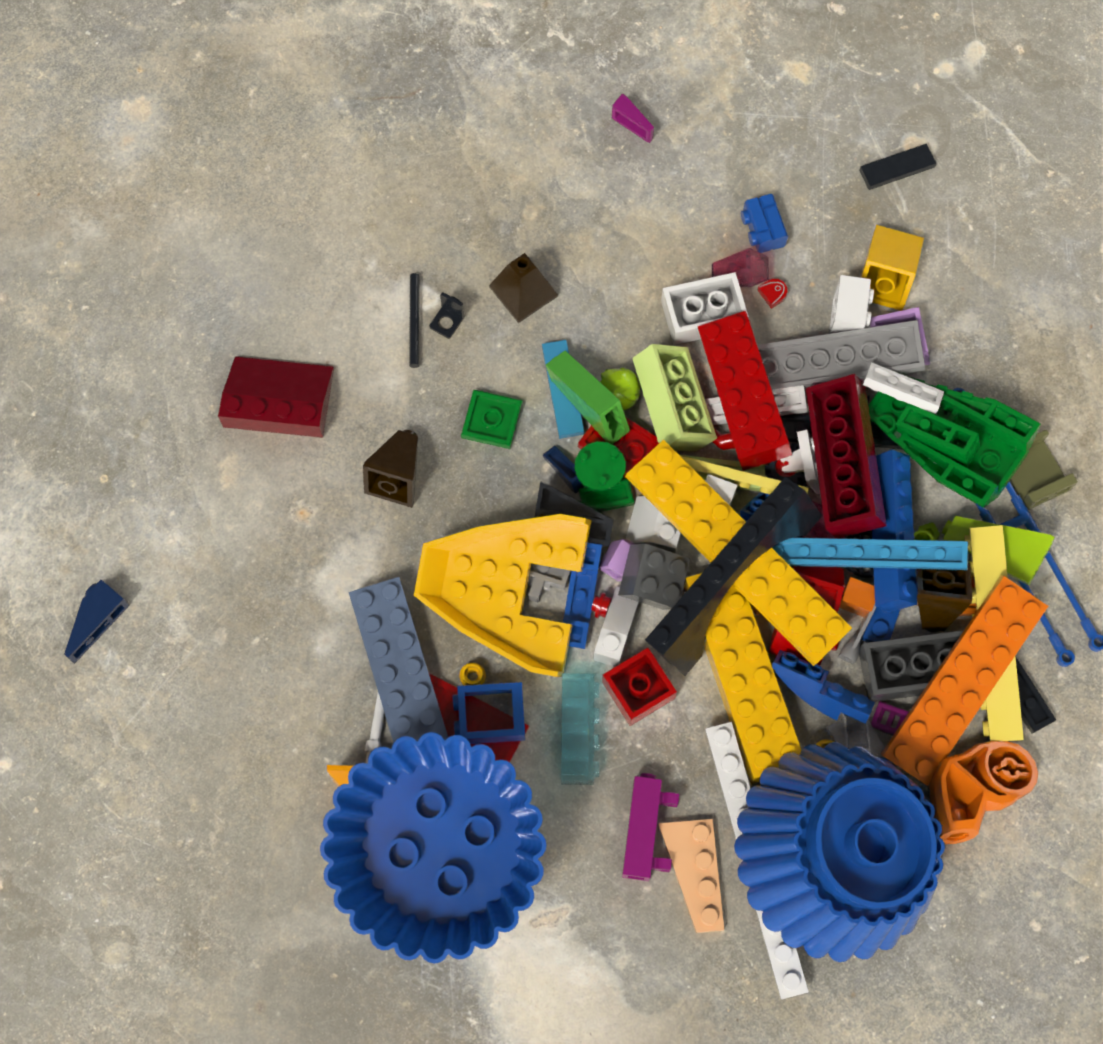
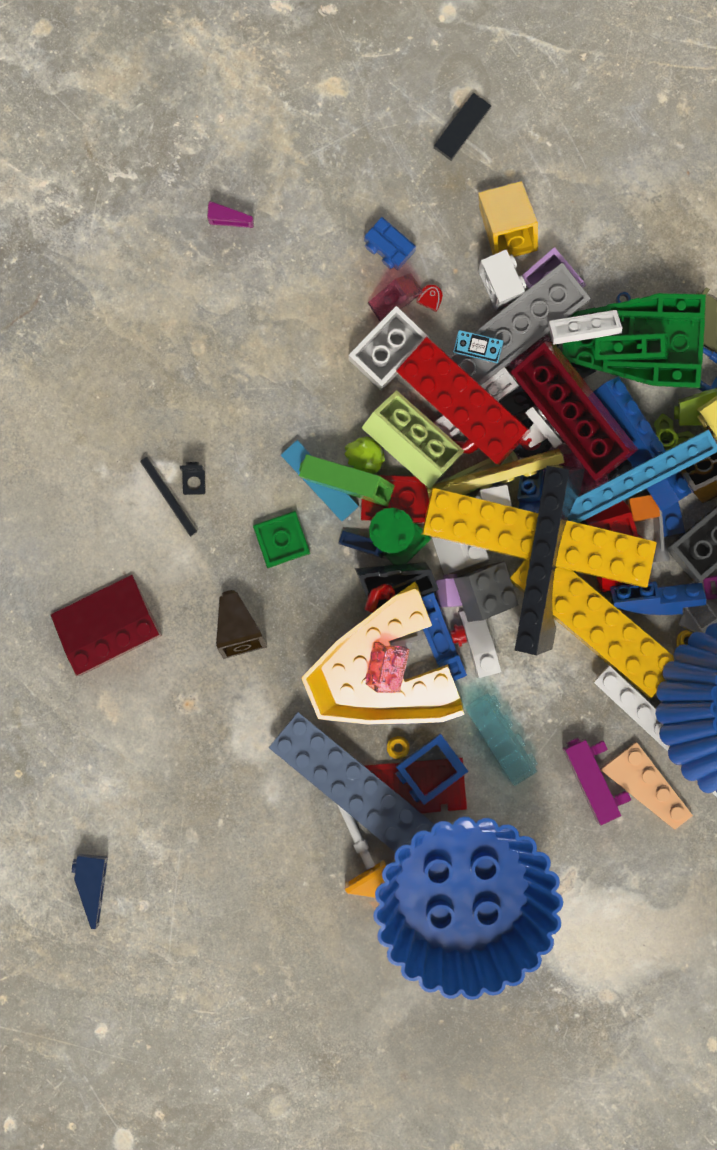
camera: 35 degrees left, 15 degrees up
(510, 585) = (386, 668): none -> clear pink bracket
(522, 288) = (238, 426): dark brown slope -> none
(546, 509) = (382, 592): none -> red arm
(639, 686) = (526, 681): red brick -> none
(790, 352) = (478, 346): none -> tile

